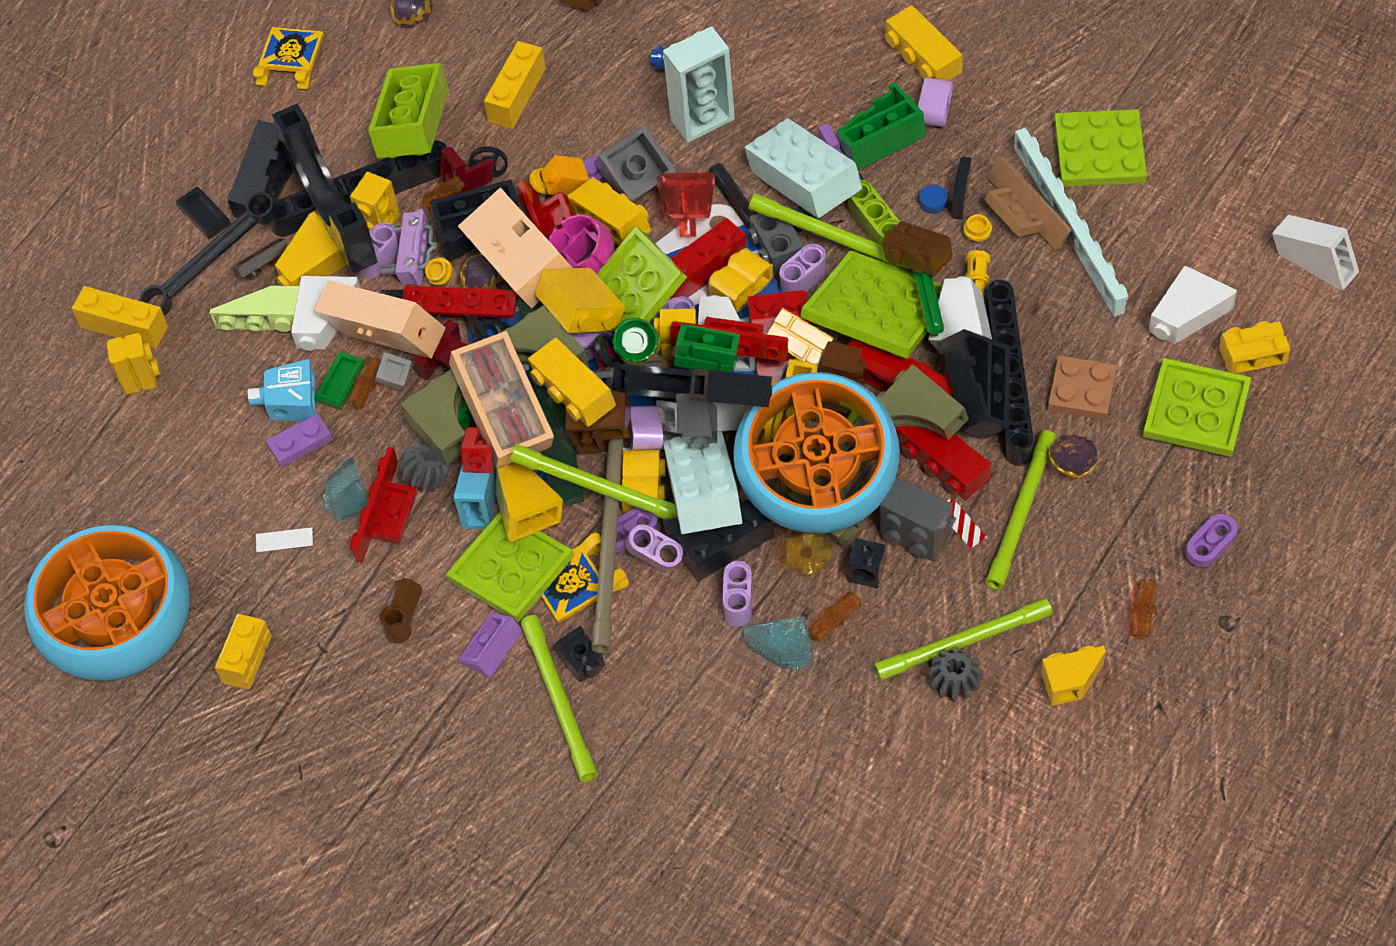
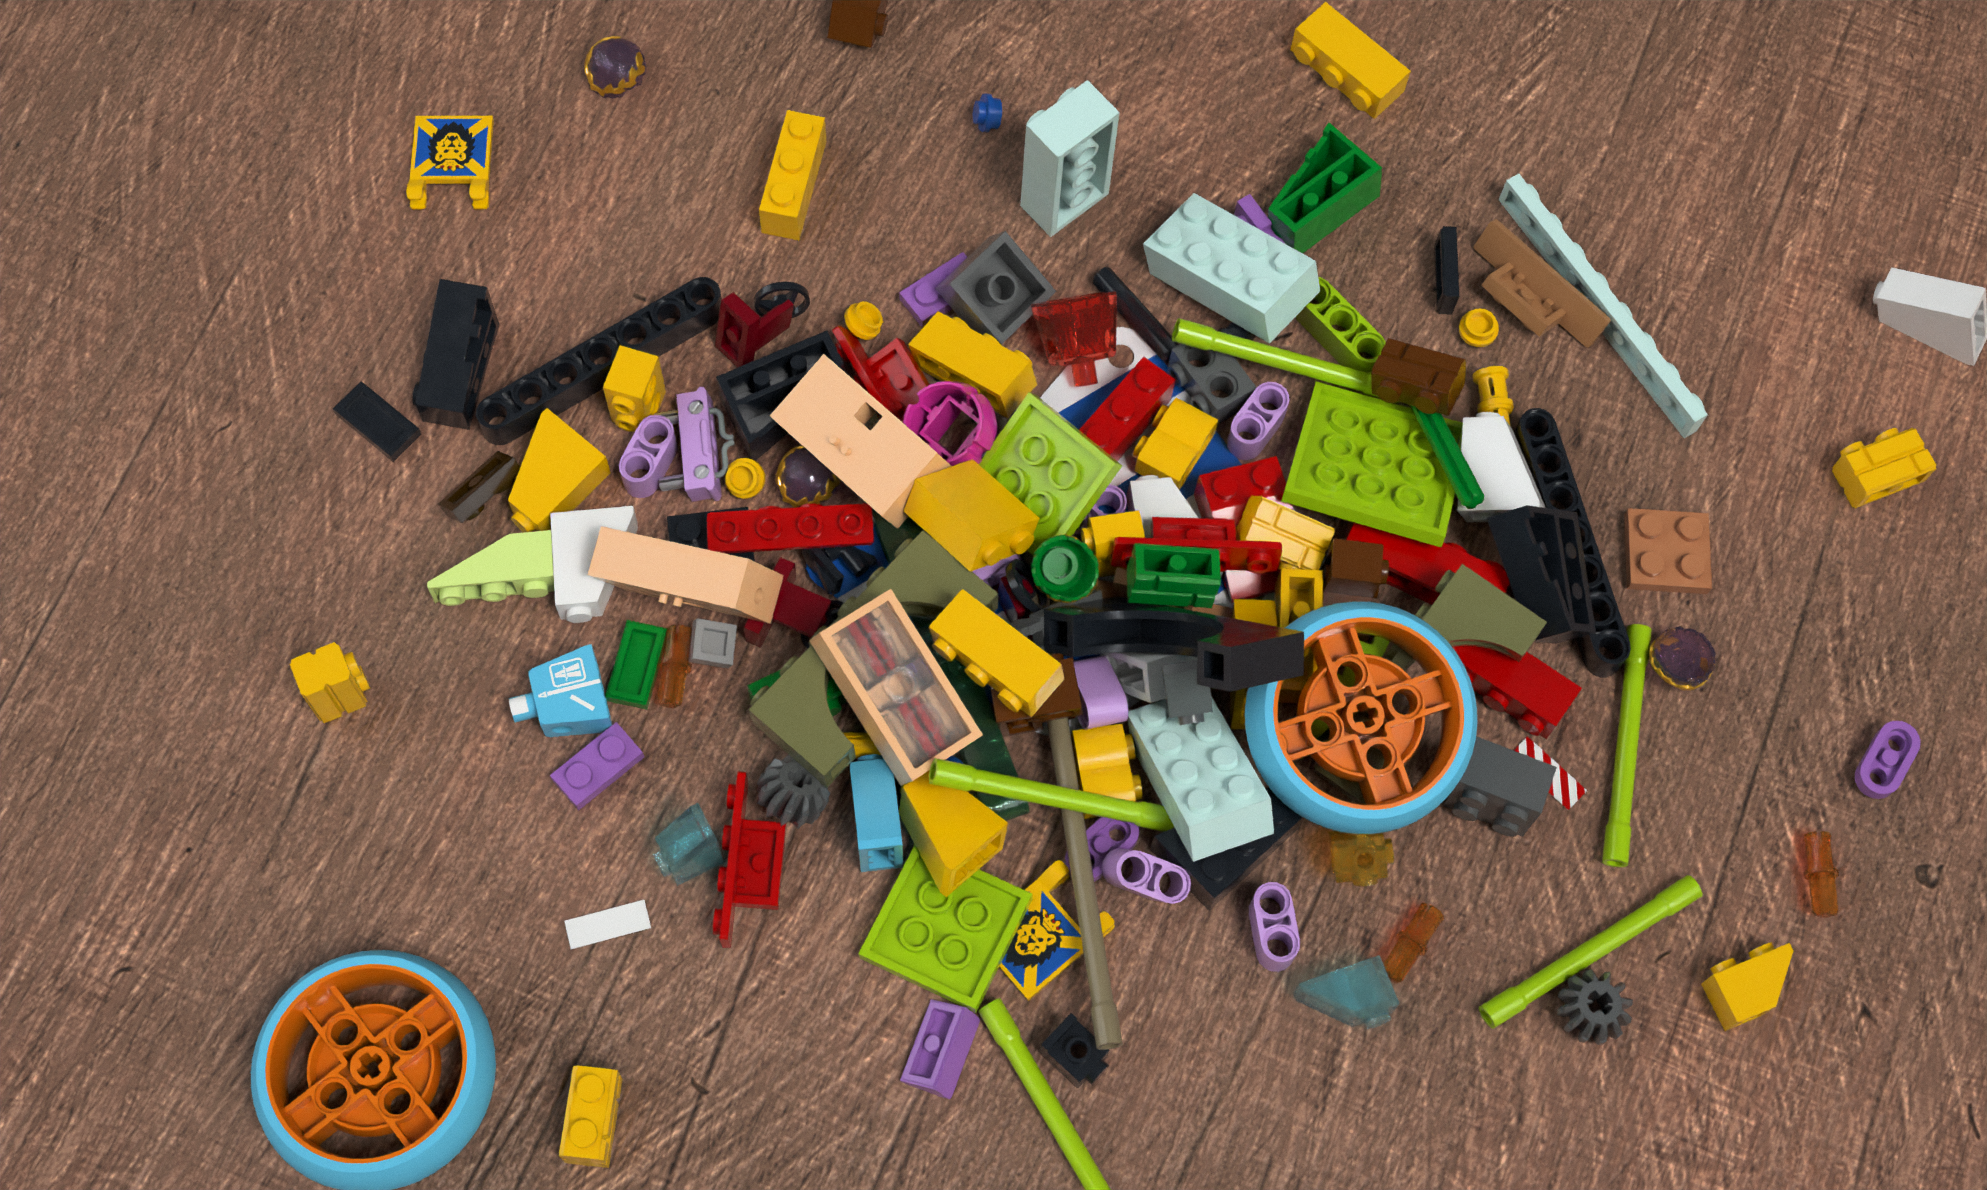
camera: 20 degrees left, 10 degrees up
(119, 316) = (291, 606): yellow brick -> none
(212, 251) = (404, 494): black piece -> none
(342, 221) = (611, 441): black arch -> none
(400, 610) = (804, 1014): reddish brown piece -> none
(409, 111) = (654, 237): lime brick -> none
(443, 189) = (728, 357): clear orange axle -> none
(475, 454) = (873, 778): red bracket -> none
(564, 174) = (897, 312): light orange brick -> none
(866, 563) = (1441, 857): black brick -> none
(933, 199) = (1409, 289): blue tile -> none
(935, 101) = (1384, 140): lavender beam -> none
(1100, 148) = (1615, 188): lime plate -> none
(1190, 305) = (1785, 412): white slope -> none
(1197, 407) = (1827, 564): lime plate -> none

